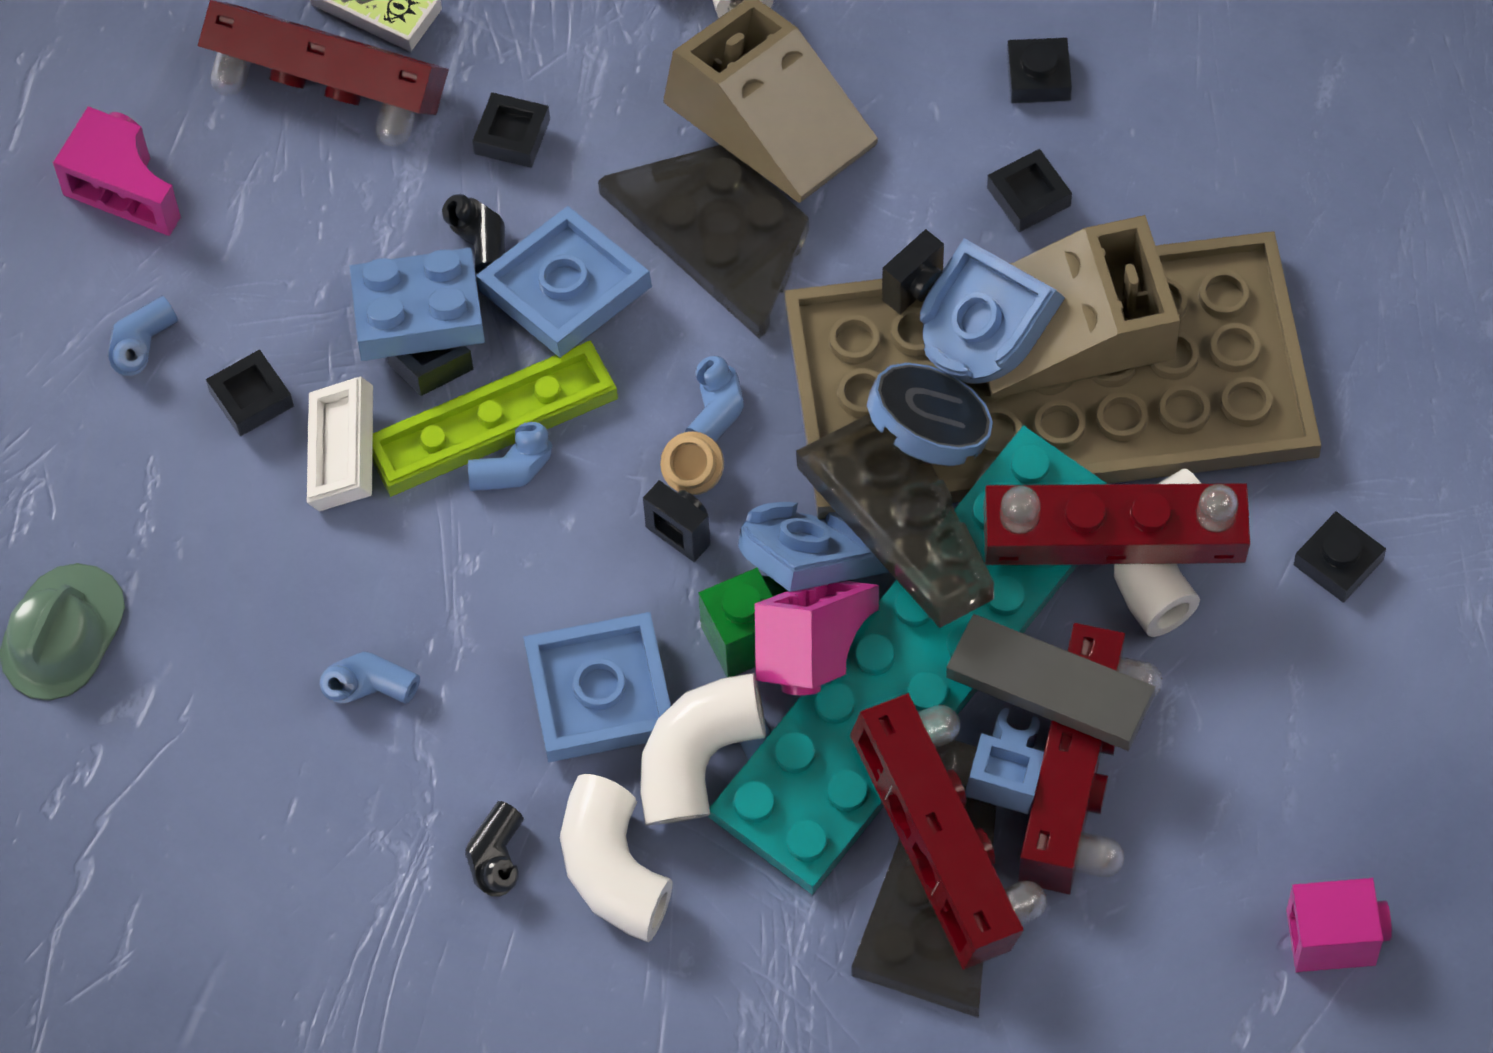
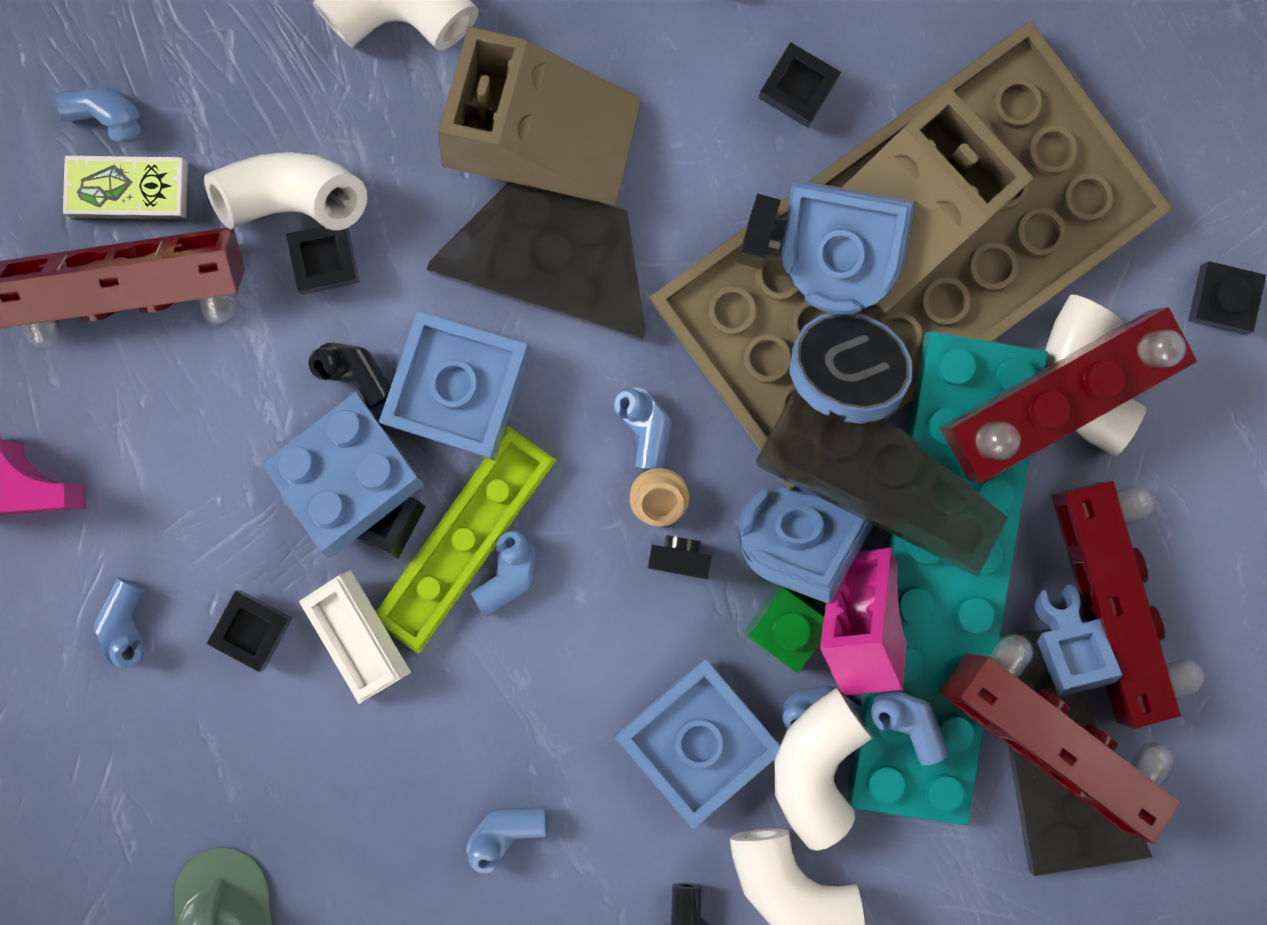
camera: 30 degrees left, 25 degrees up
(512, 55) = (286, 184): none -> white cylinder
(810, 738) = (914, 718): none -> medium blue arm
(1050, 682) = (1084, 565): dark grey tile -> none

